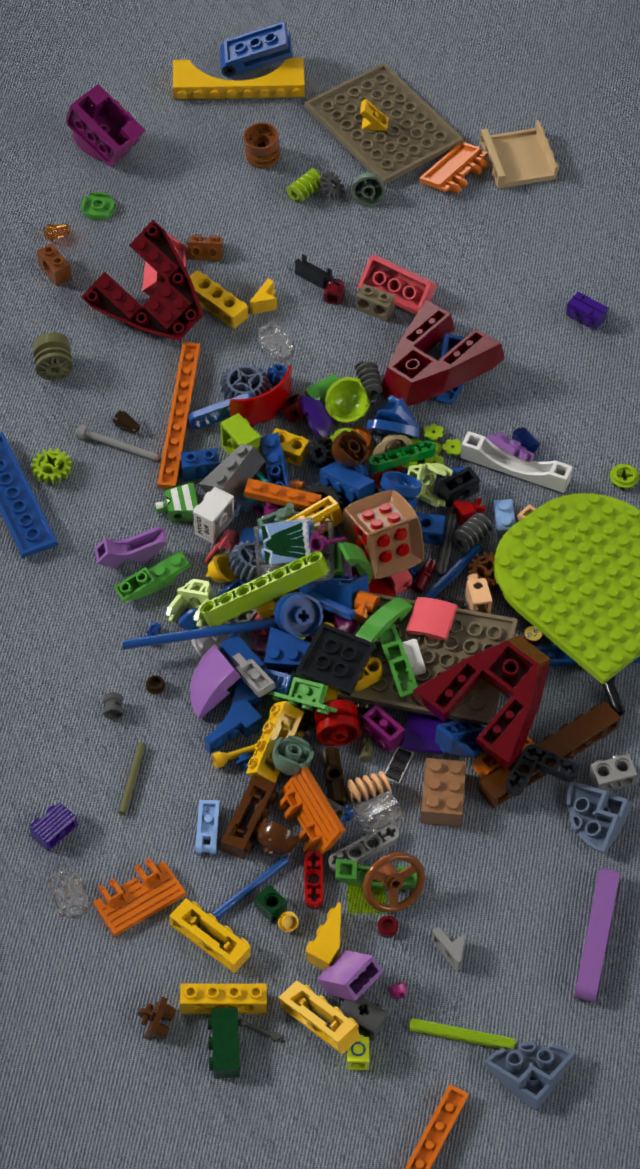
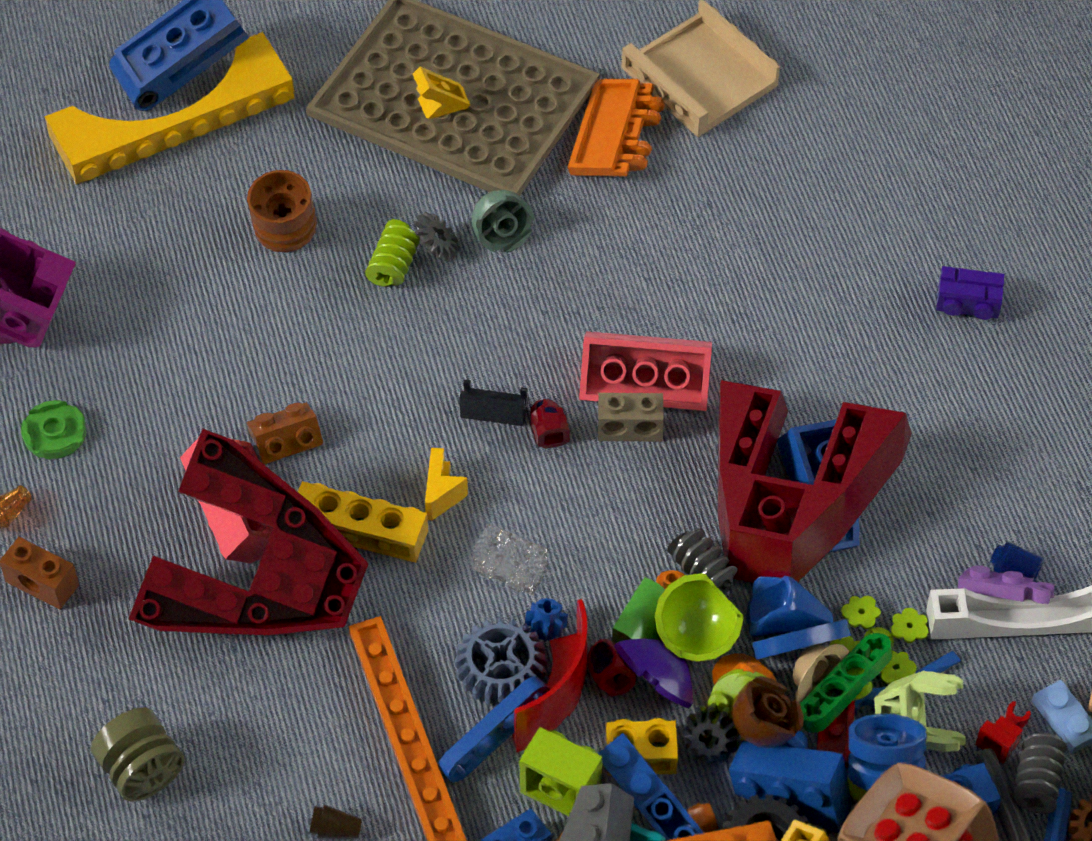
camera: 25 degrees left, 0 degrees up
(458, 486) = (963, 710): black brick -> none

